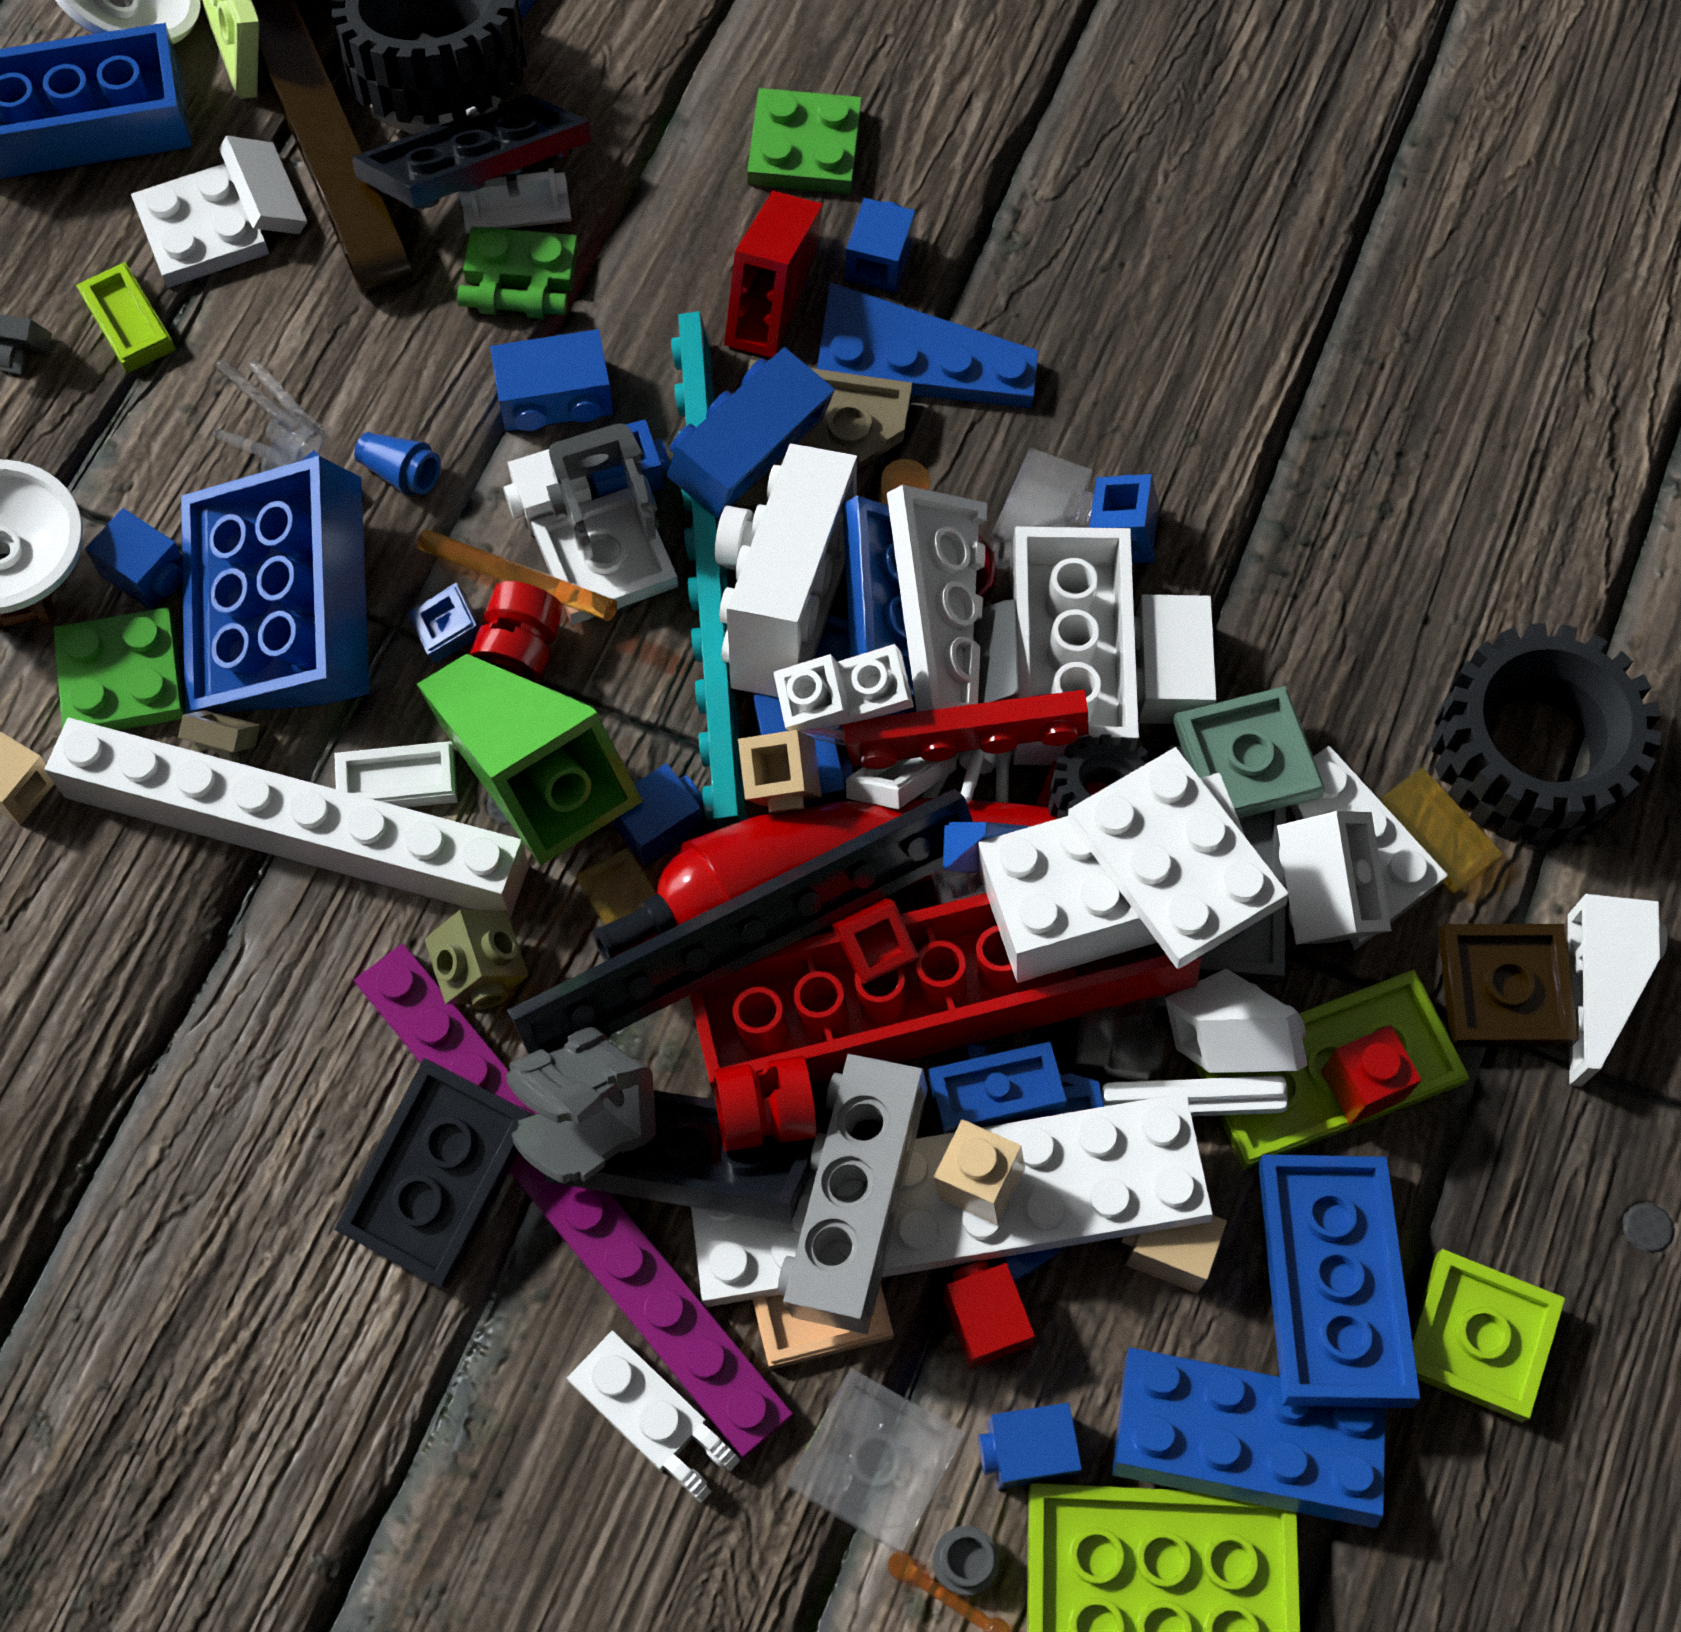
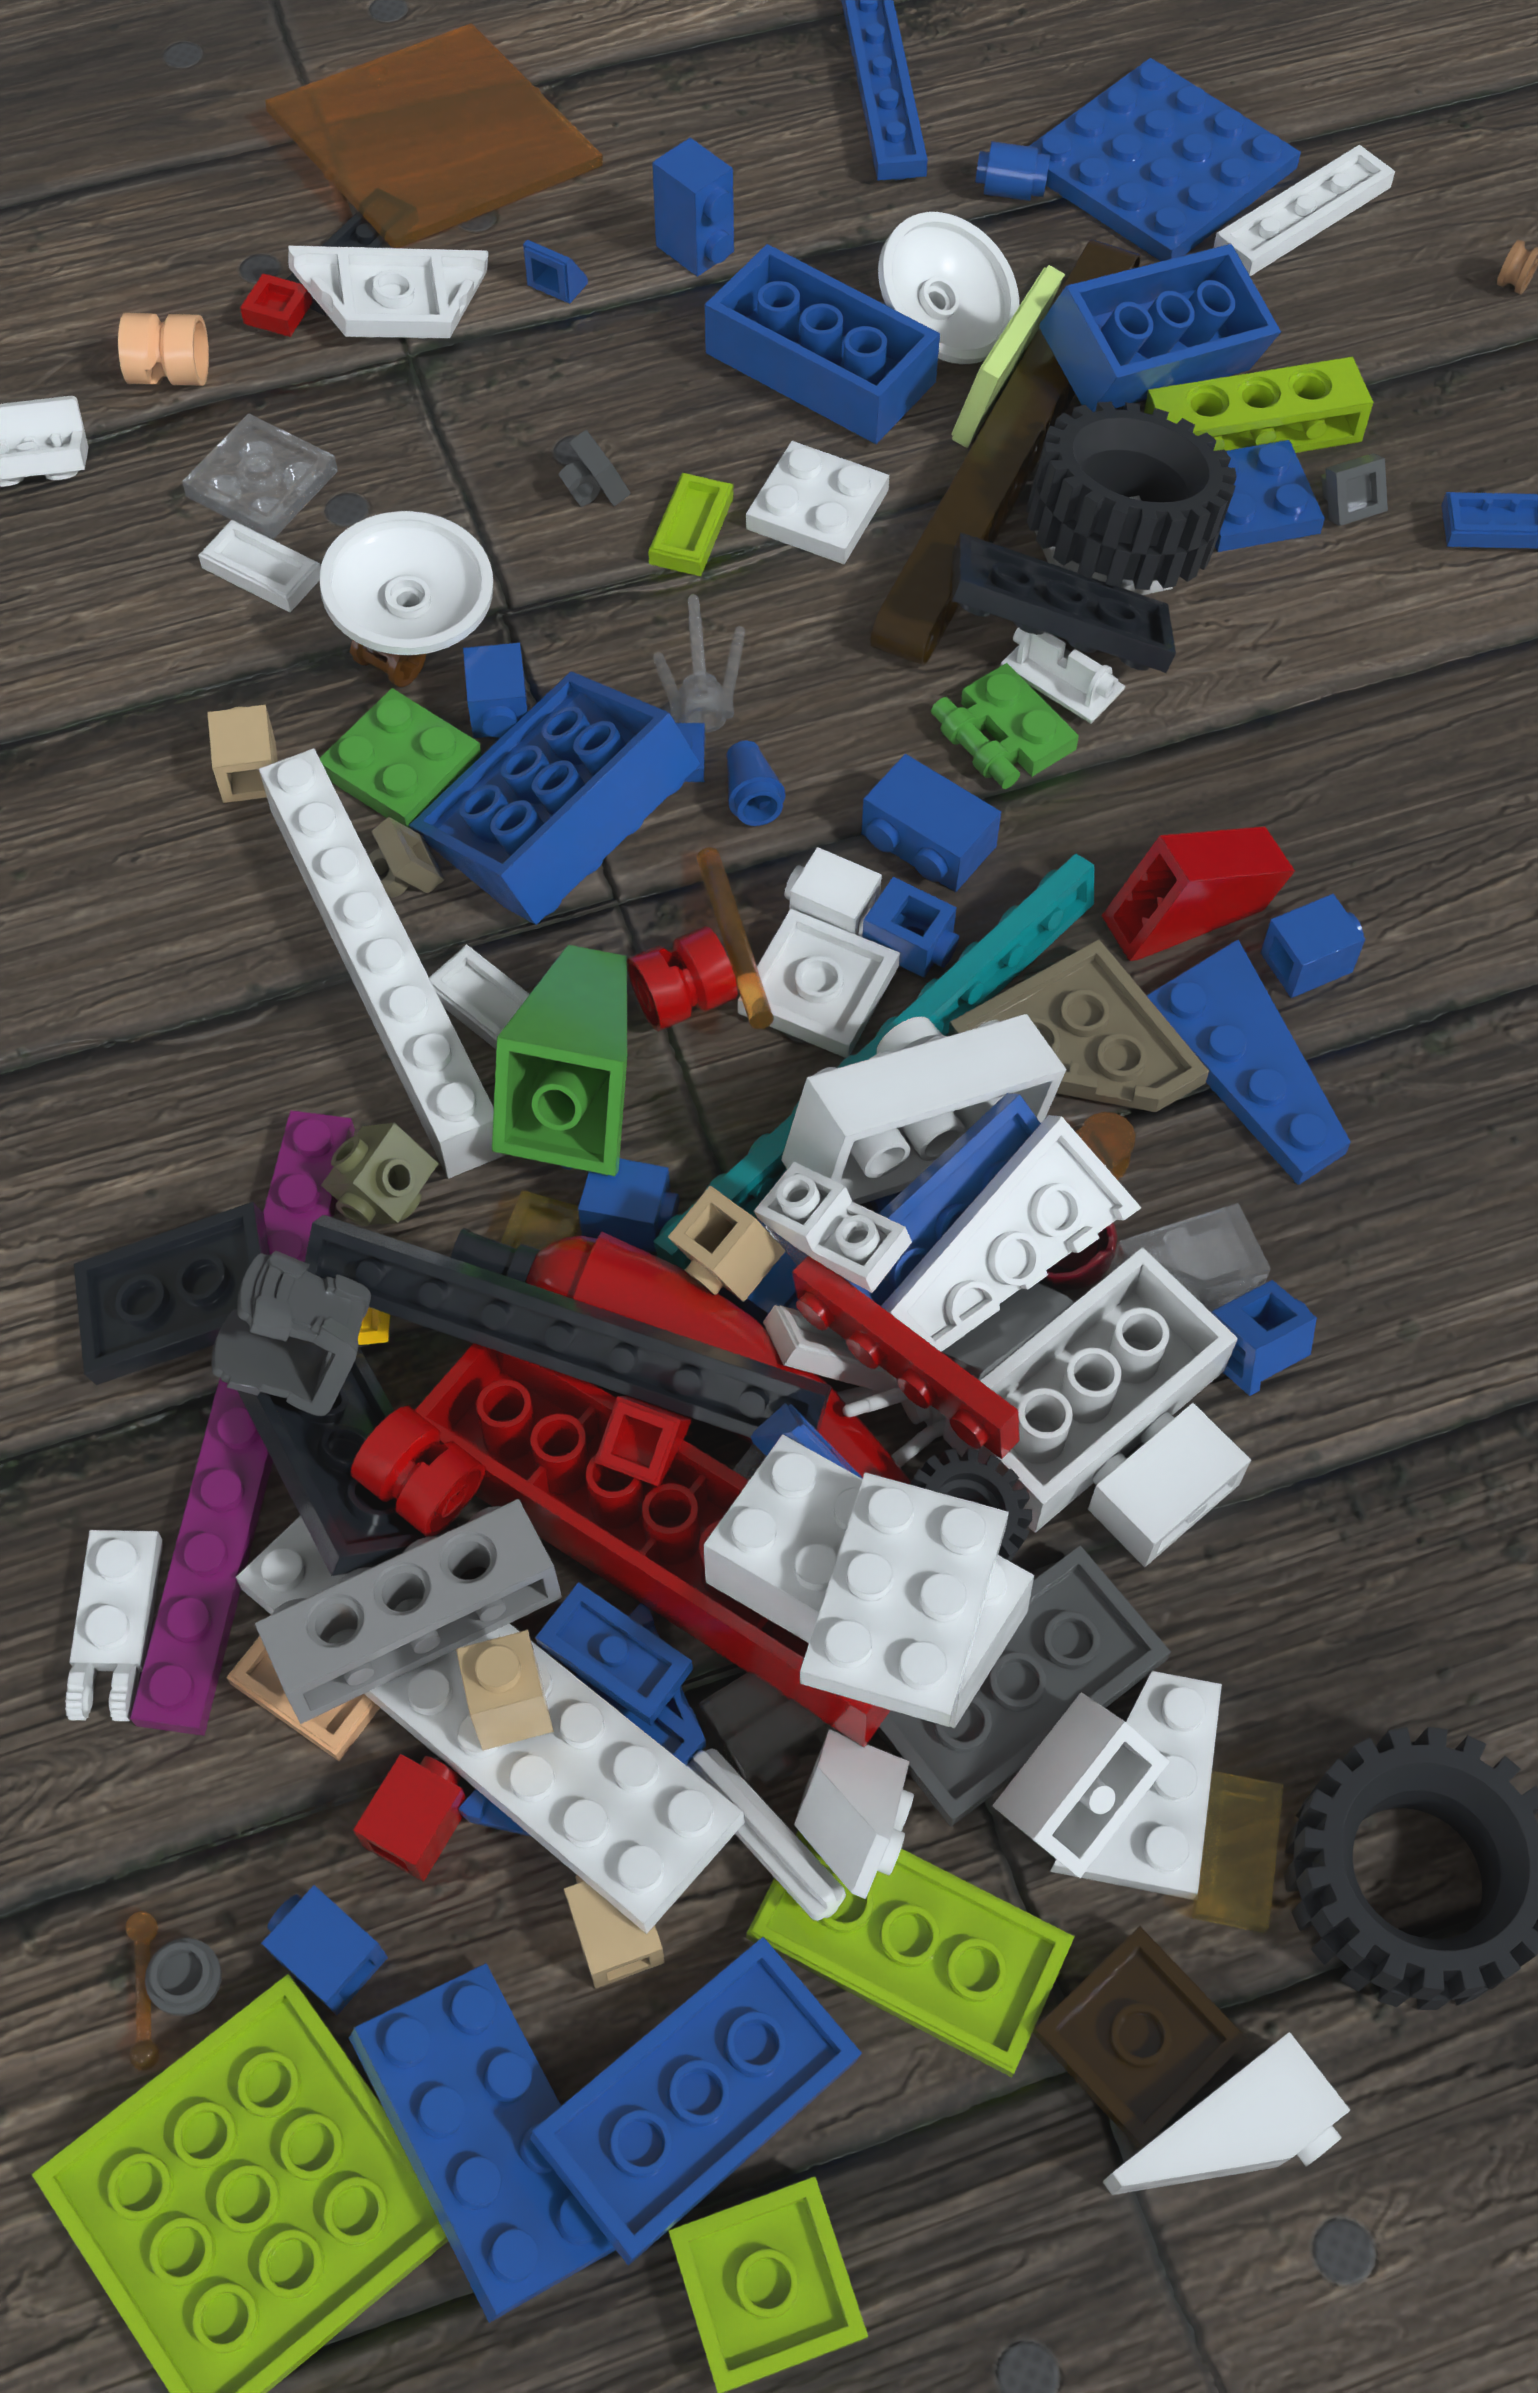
camera: 50 degrees right, 5 degrees down
(263, 185) = (889, 509): white tile -> none
(445, 623) = (647, 924): blue tile -> none
(591, 454) = (860, 883): dark grey piece -> none
(748, 431) = (1056, 982): blue brick -> none
(804, 141) = (1351, 818): bright green plate -> none
(875, 1460) = (210, 1829): clear plate -> none
(1254, 748) = (1132, 1617): sand green tile -> none
(1370, 1074) = (916, 1968): red brick -> none

